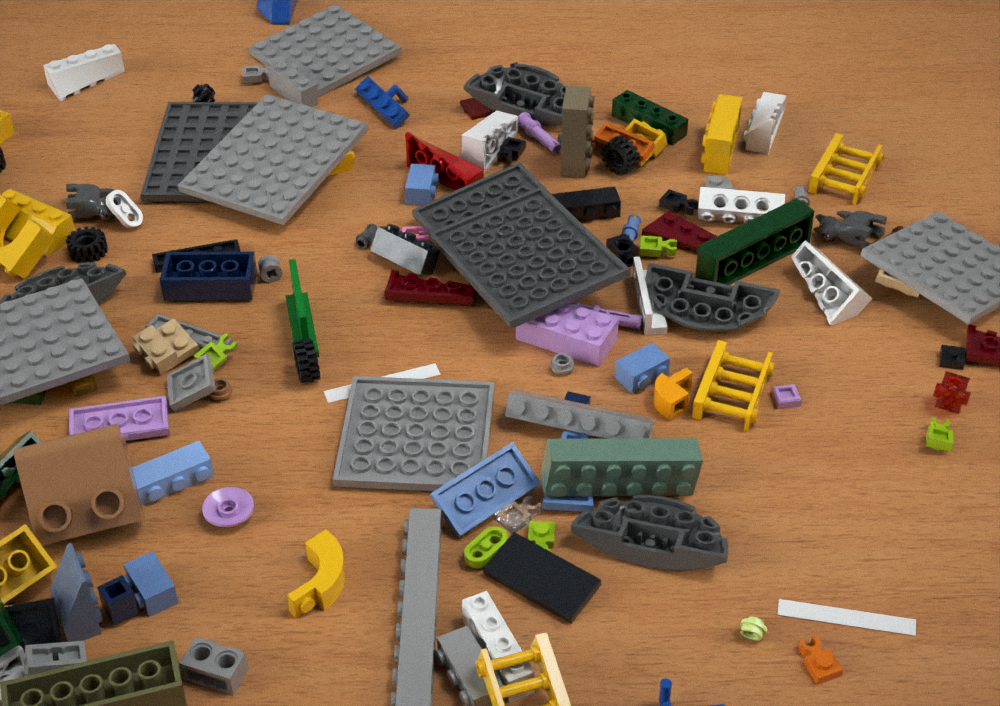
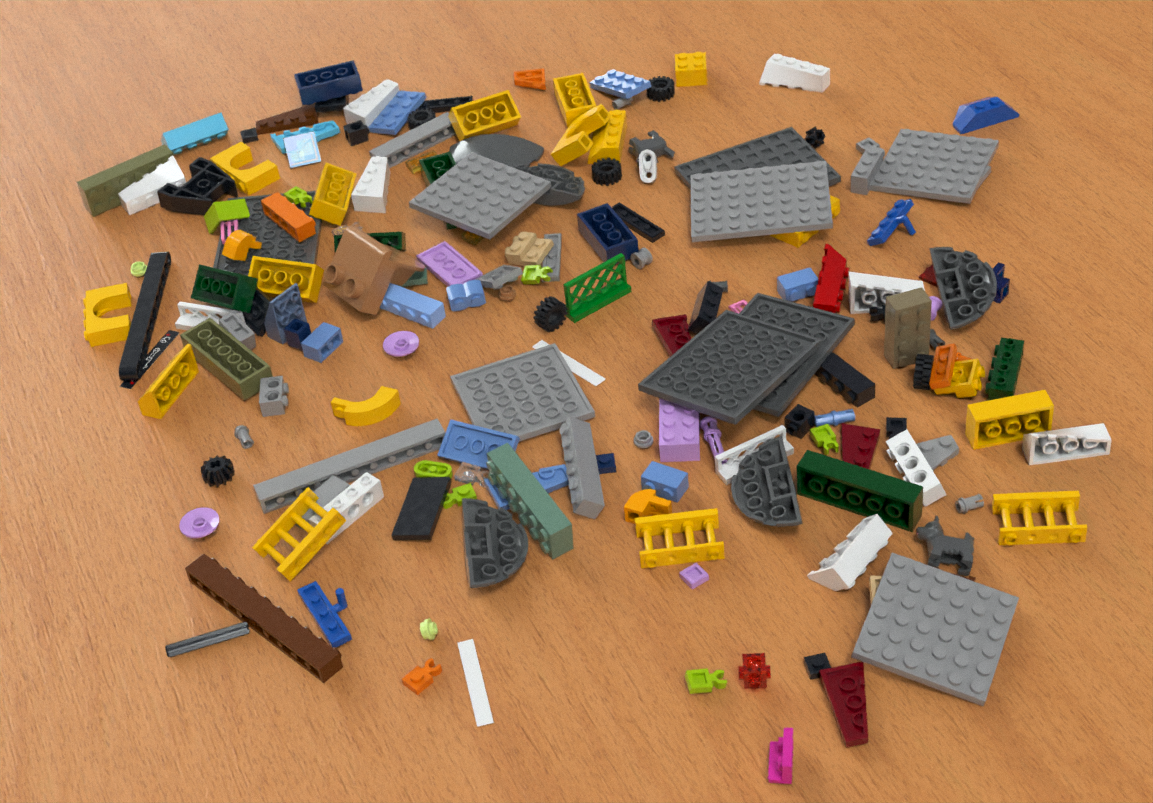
camera: 70 degrees right, 0 degrees up
(192, 422) = (465, 295): none -> medium blue brick

